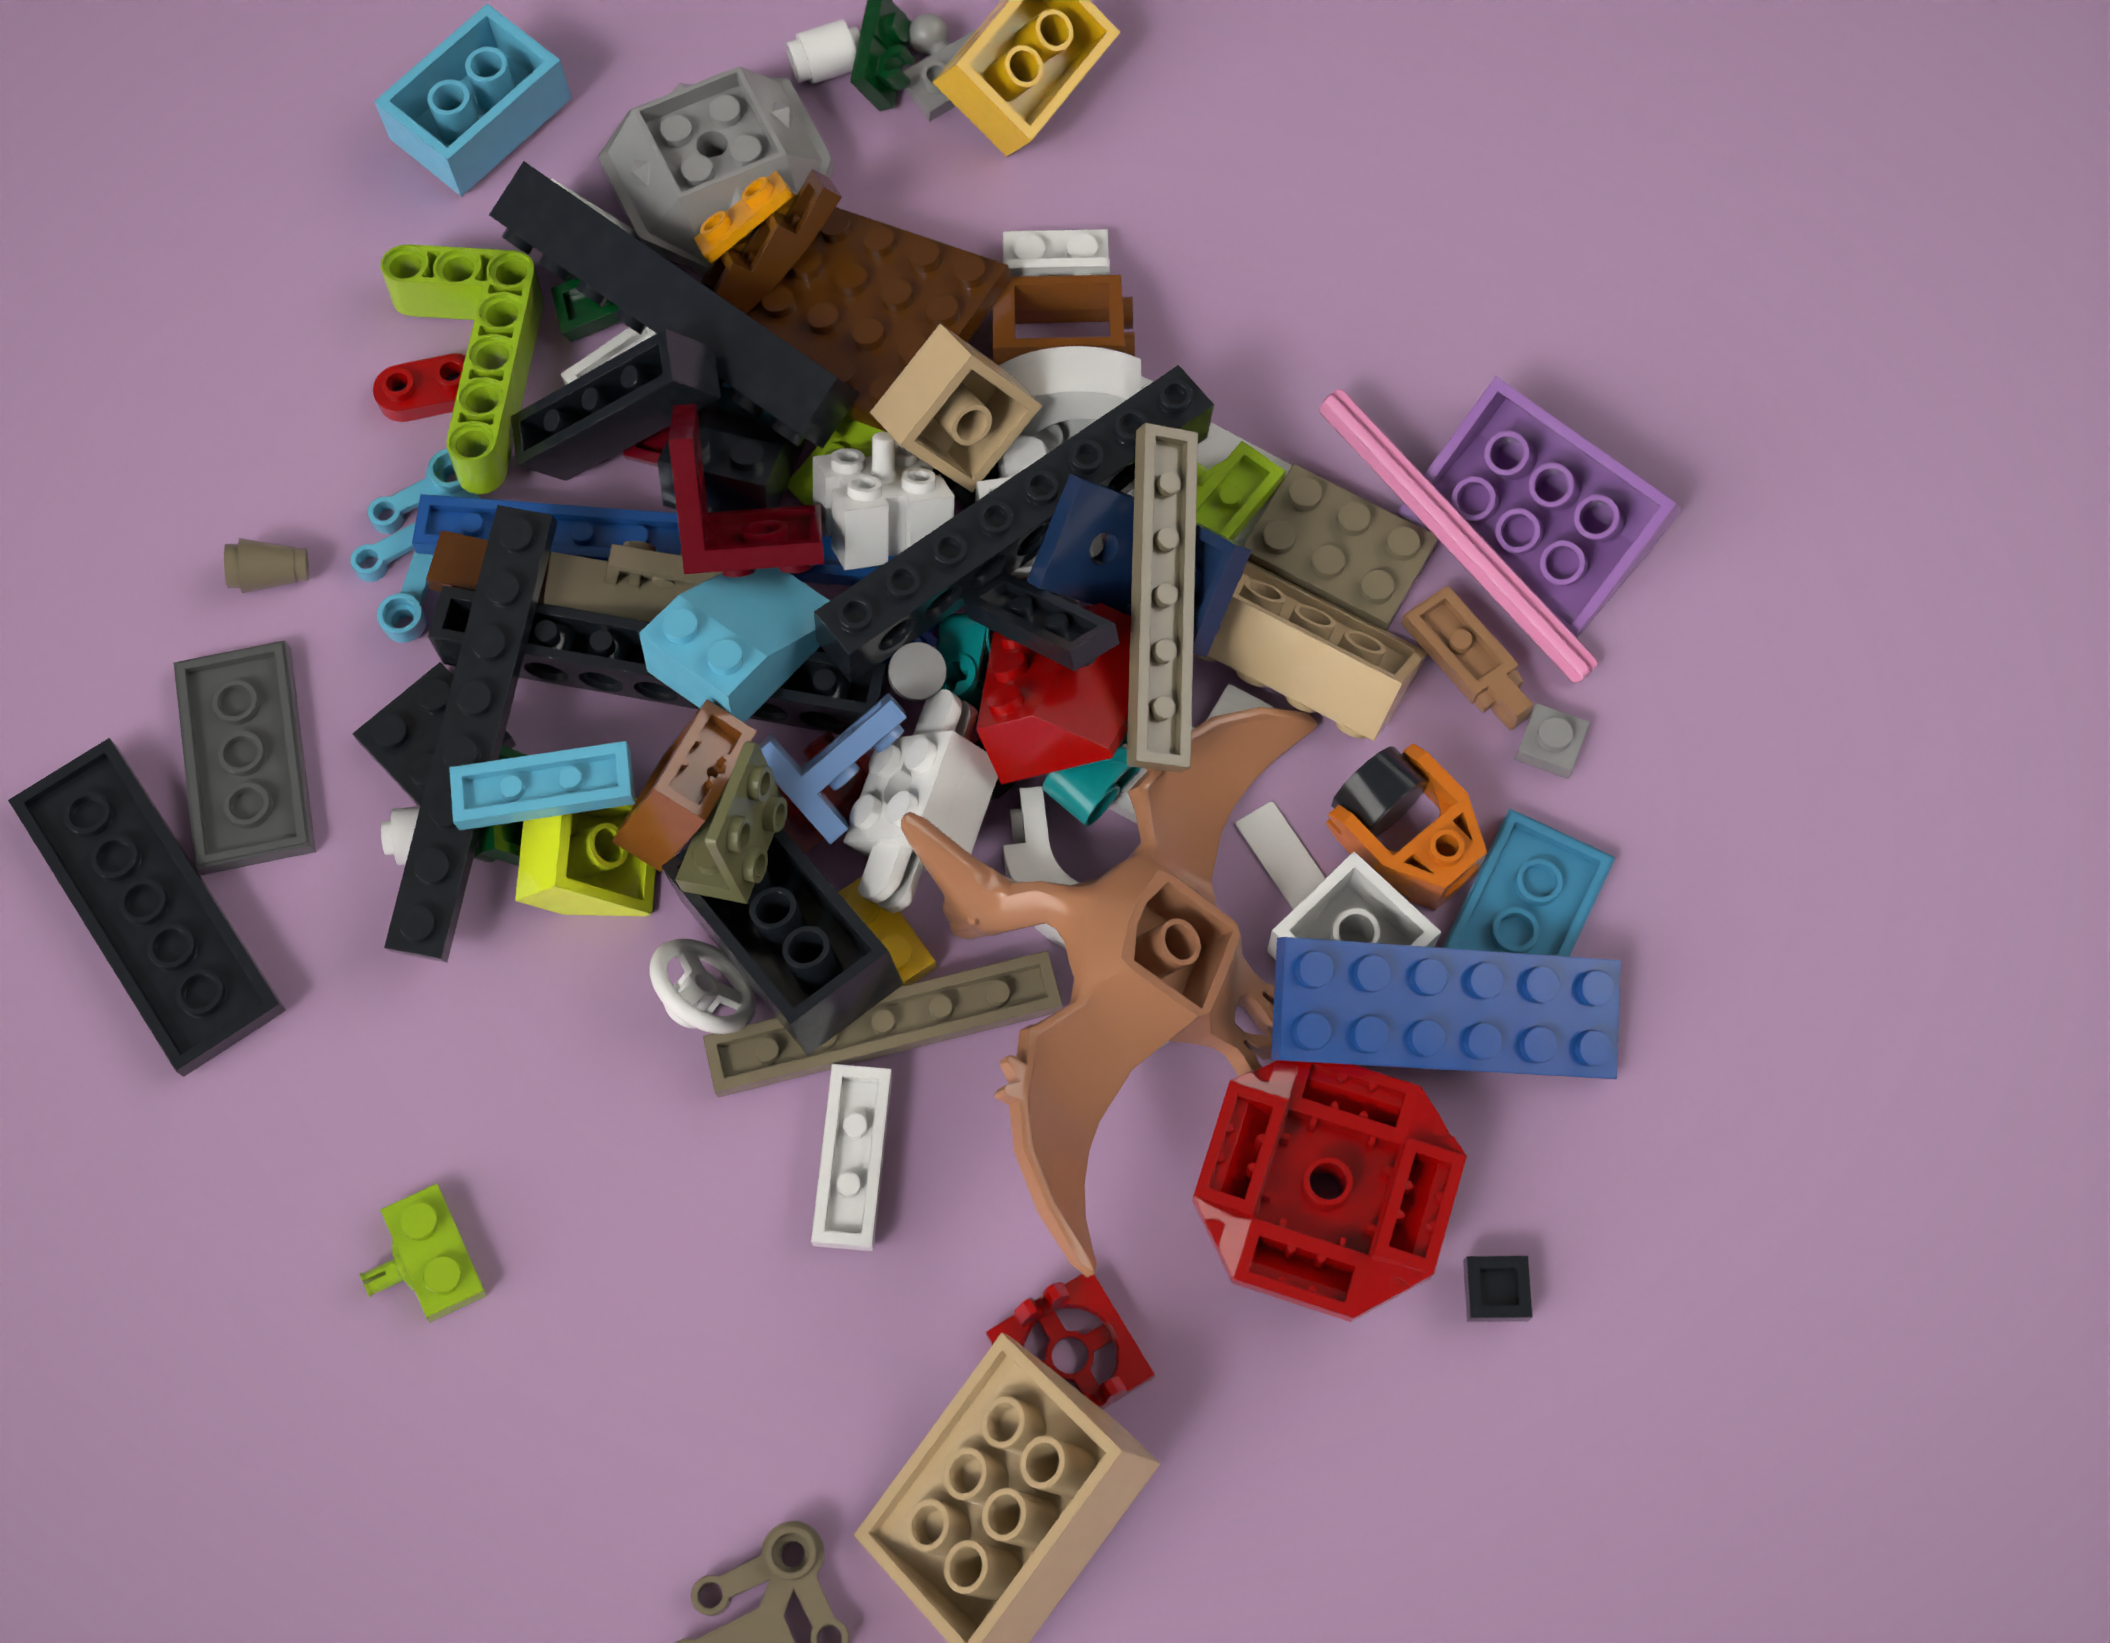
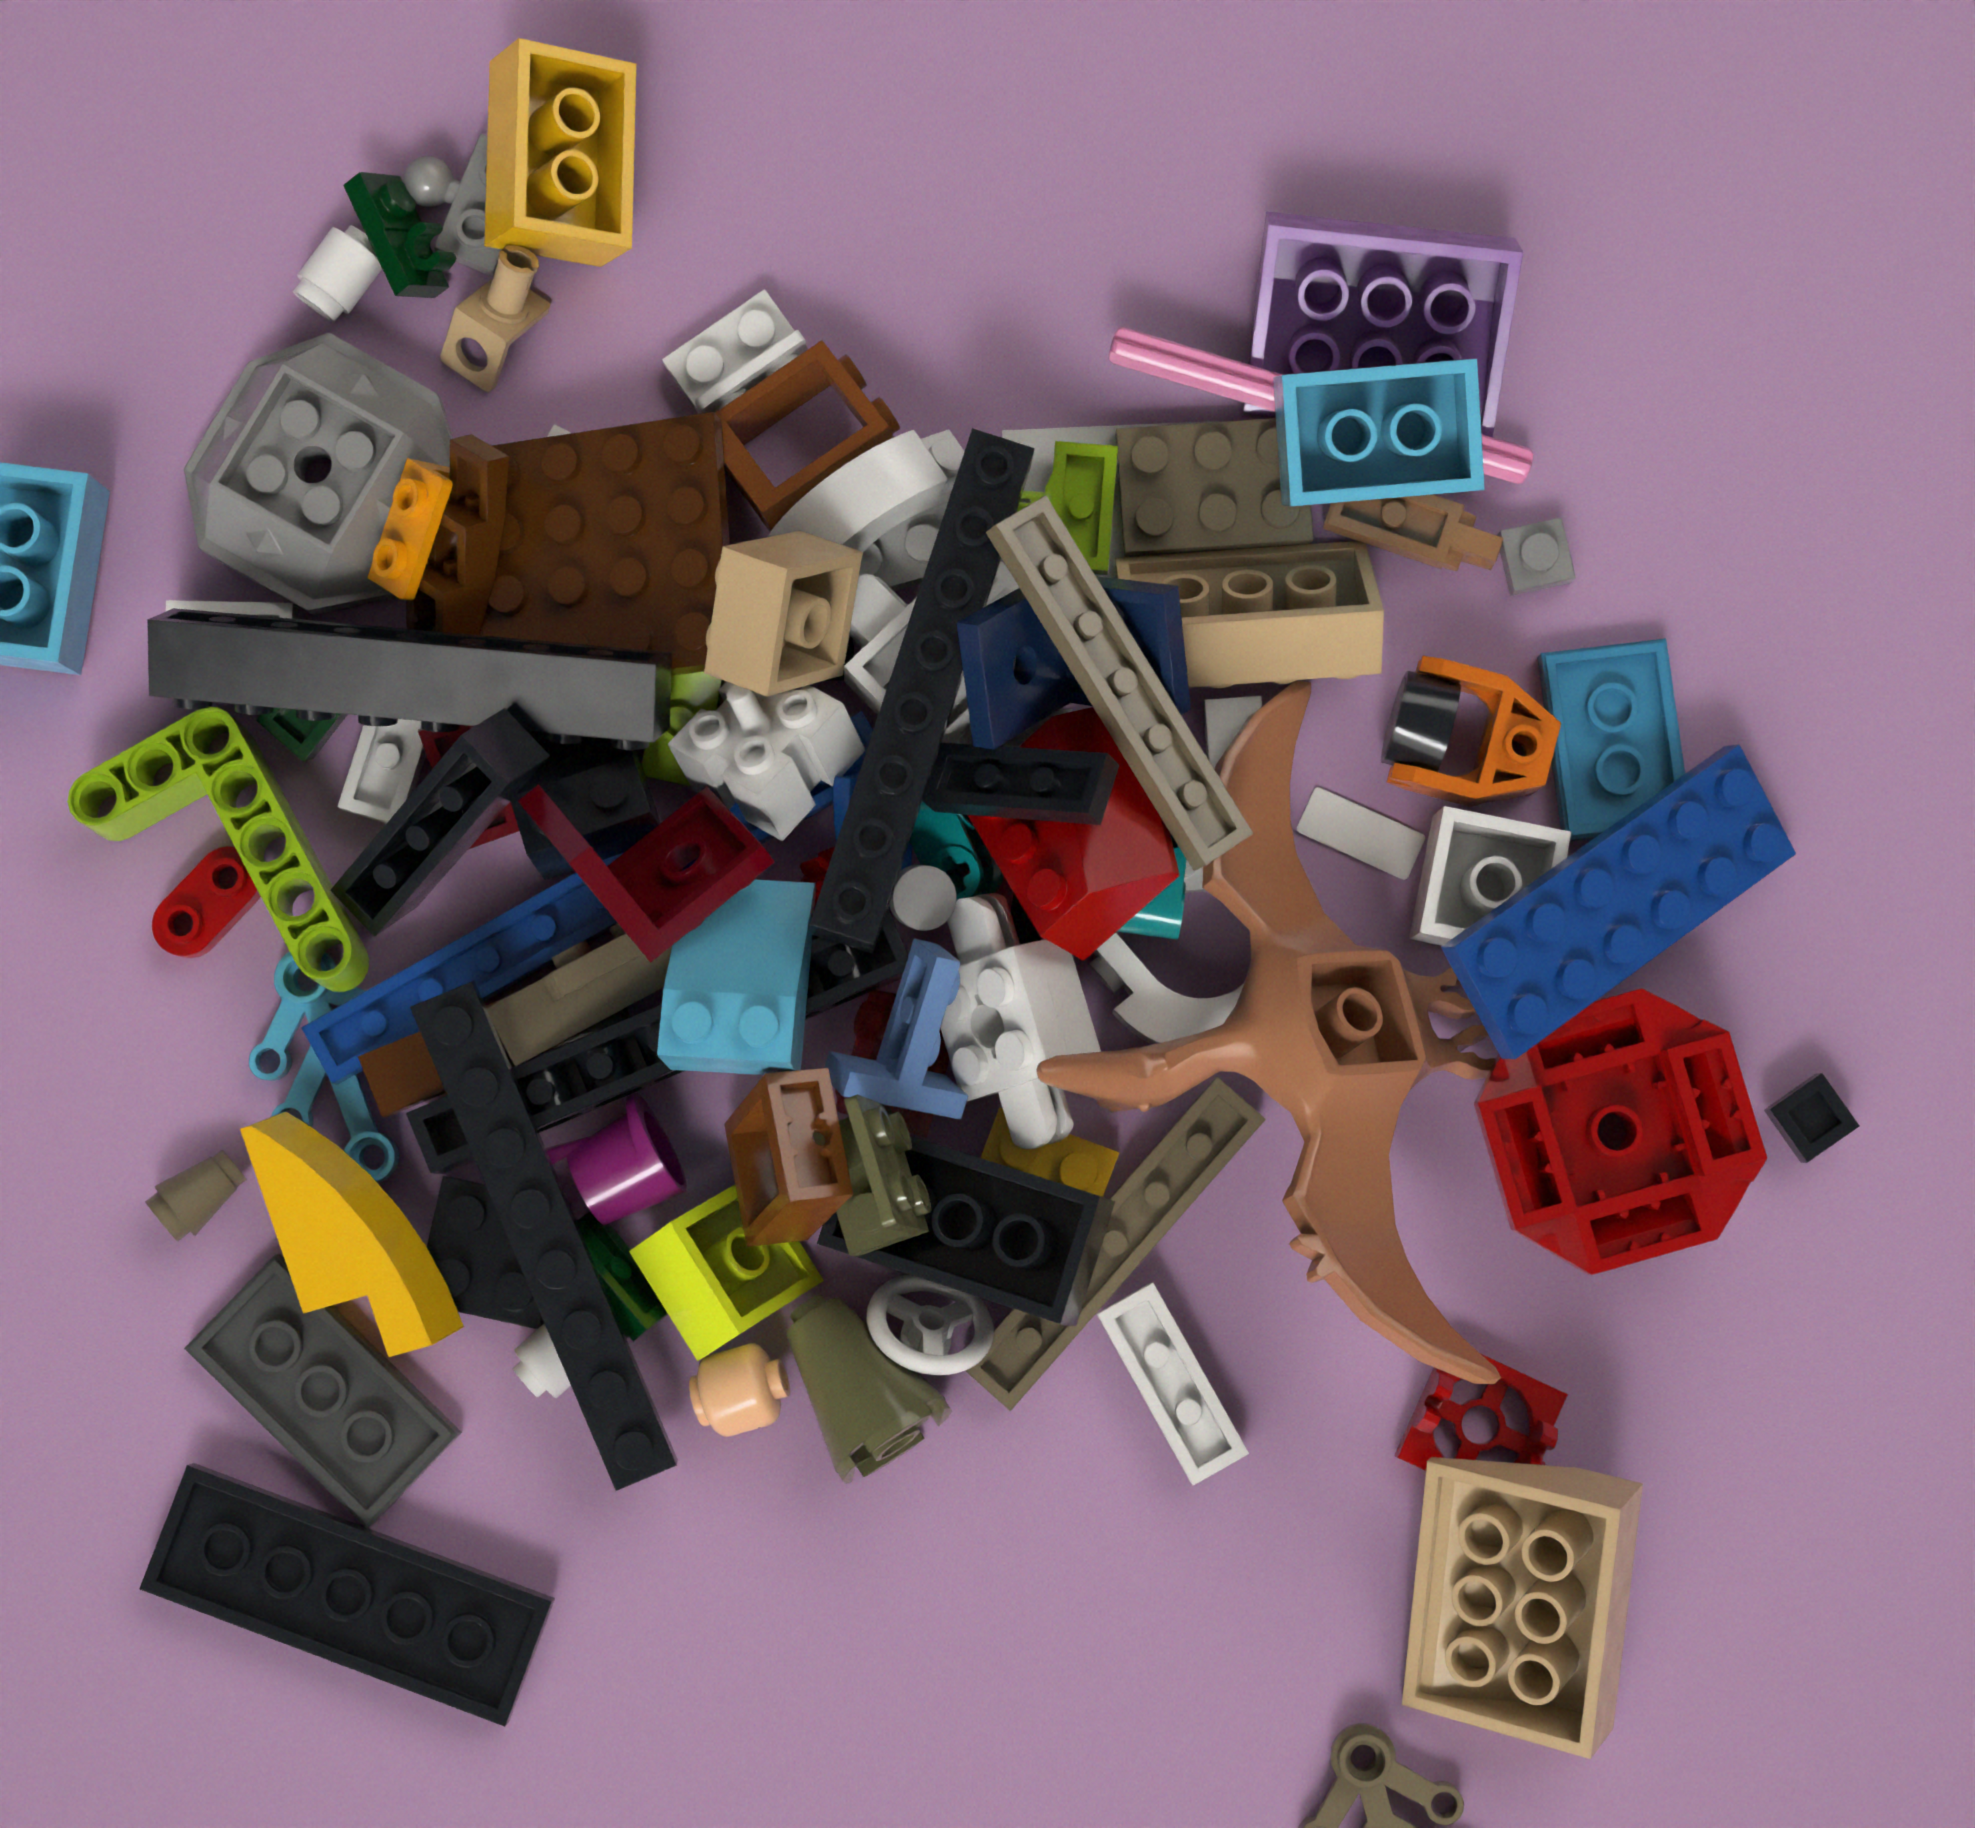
camera: 35 degrees left, 15 degrees up
(339, 652) = (347, 1235): none -> yellow slope
(427, 1256) = (856, 1726): lime plate -> none
(529, 943) = (738, 1390): none -> light nougat head
(542, 785) = (662, 1252): medium azure plate -> none
(567, 720) = (624, 1164): none -> magenta hat
(611, 1012) = (858, 1394): none -> olive cone
(909, 136) = (495, 316): none -> tan bracket
(1481, 559) = (1379, 432): none -> medium azure brick

